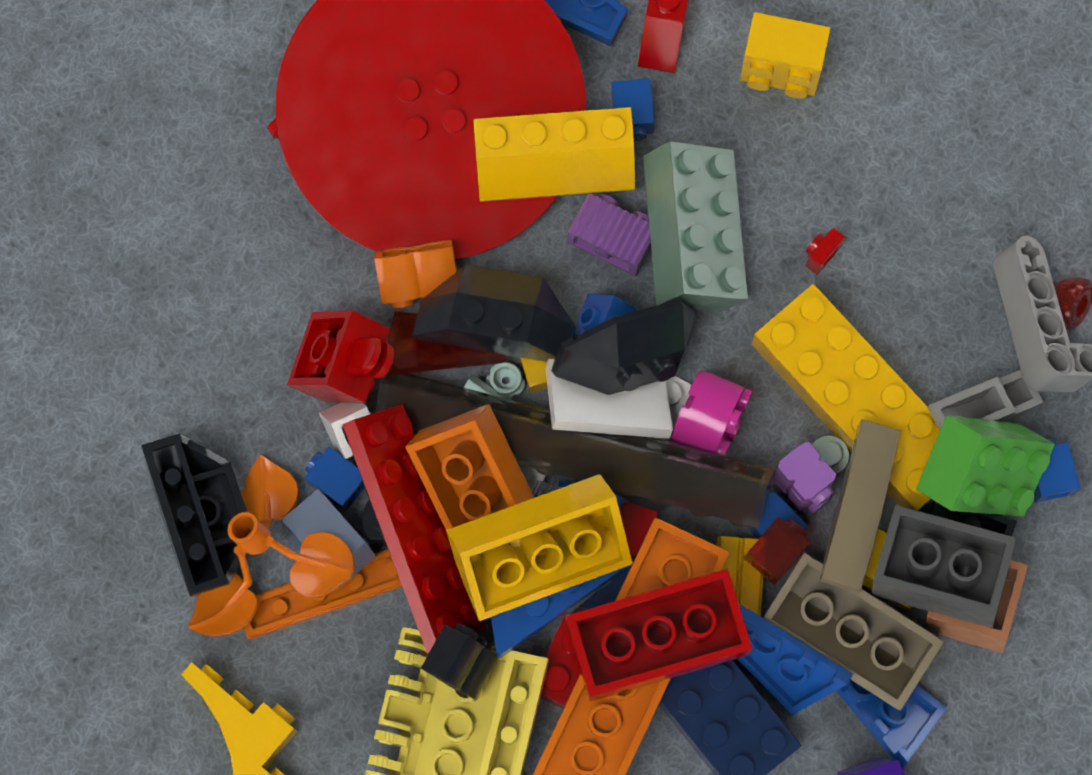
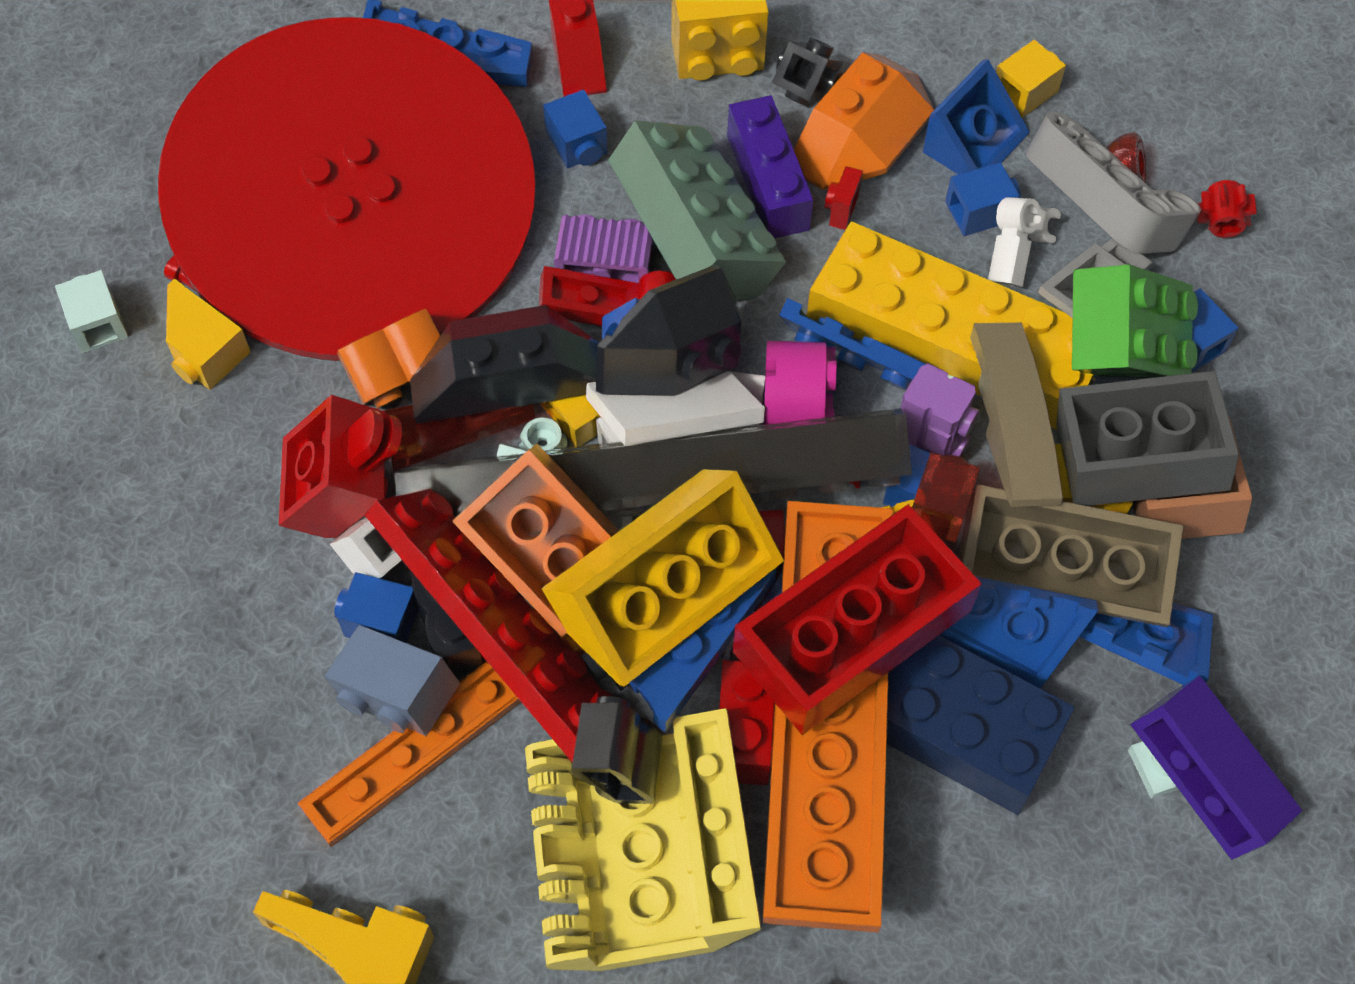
camera: 25 degrees left, 15 degrees down
(196, 503) = (211, 703): black wedge -> none
(202, 145) = (91, 311): none -> light aqua brick
(276, 199) = (201, 338): none -> yellow slope
(318, 570) = (392, 707): orange plant -> none
(555, 154) = (507, 181): yellow slope -> none
(596, 275) = (589, 296): none -> red plate
(772, 390) = (896, 366): none -> blue wing
(774, 201) = (769, 166): none -> dark purple brick
(843, 121) = (795, 66): none -> black brick
(874, 182) = (863, 121): none -> orange wedge
(937, 292) = (976, 197): none -> blue brick
(937, 347) = (1018, 220): none -> white bar
(962, 222) = (974, 123): none -> blue slope
(1029, 189) = (1031, 76): none -> yellow brick

